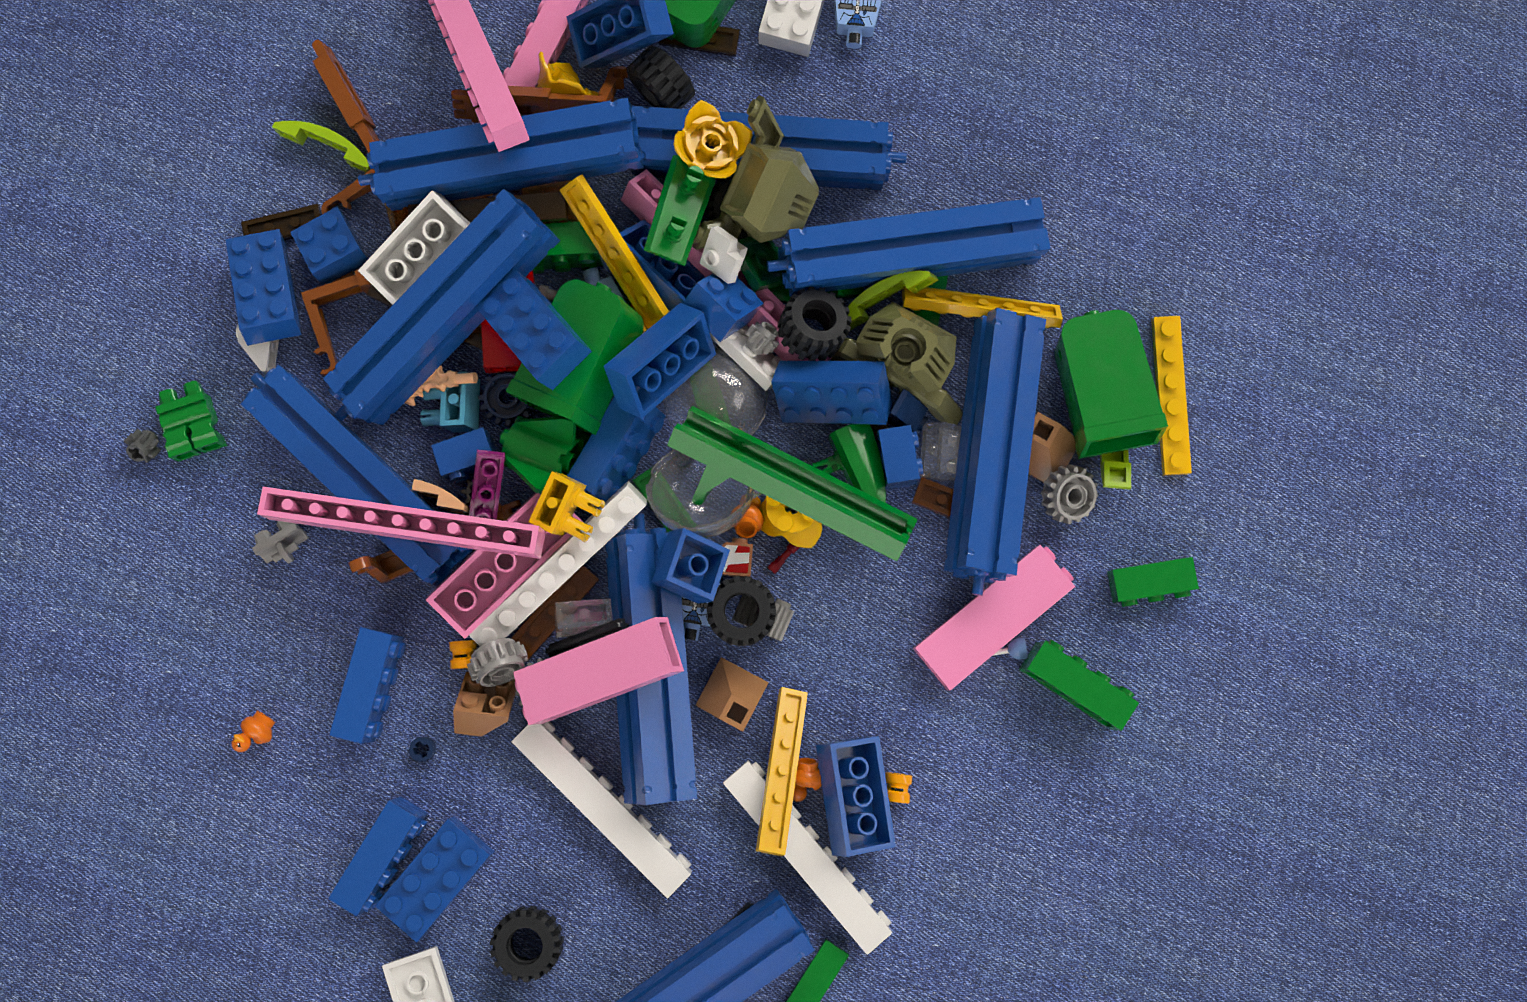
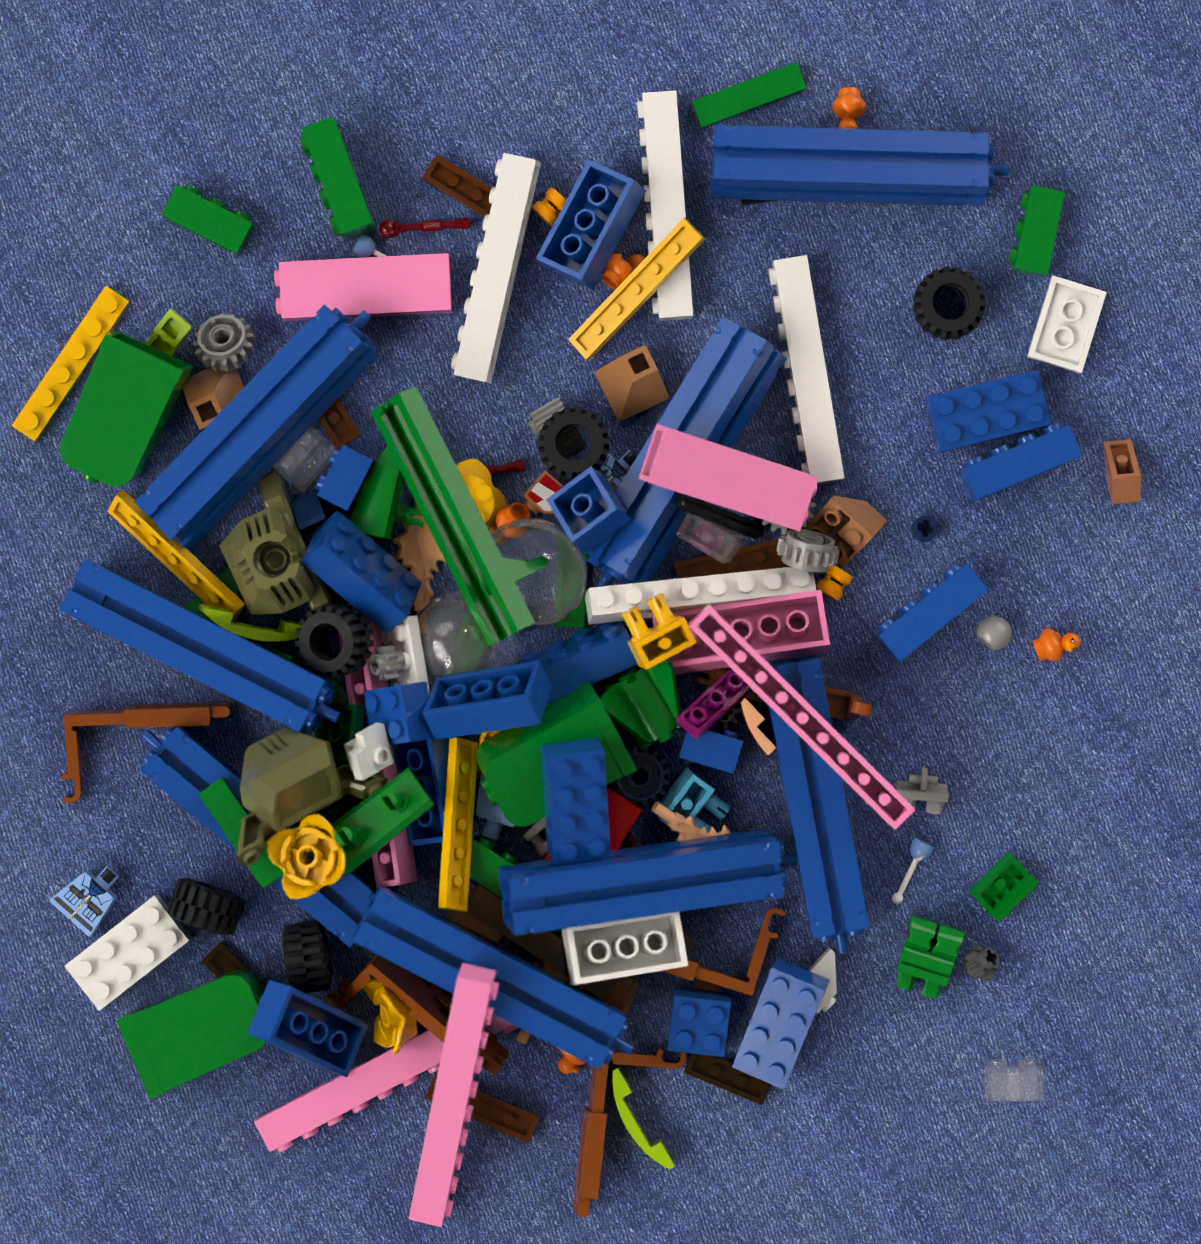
camera: 140 degrees left, 5 degrees up
(56, 373) = (1012, 1081): none -> clear brick
(164, 515) = (1003, 887): none -> green bracket
(250, 497) = (920, 851): none -> hinge
(294, 909) = (1122, 471): none -> nougat slope
(309, 707) = (994, 632): none -> light grey piece
(435, 75) = (498, 1114): none -> reddish brown plate
(764, 64) = (206, 906): none -> black tyre
(797, 442) = (420, 554): none -> light nougat piece
(798, 136) = (229, 814): none -> green tile
(904, 707) = (496, 267): none -> white brick
(923, 166) = (133, 717): none -> dark orange hinge
(961, 753) = (459, 185): none -> reddish brown plate
(1009, 677) = (391, 228): none -> dark red piece

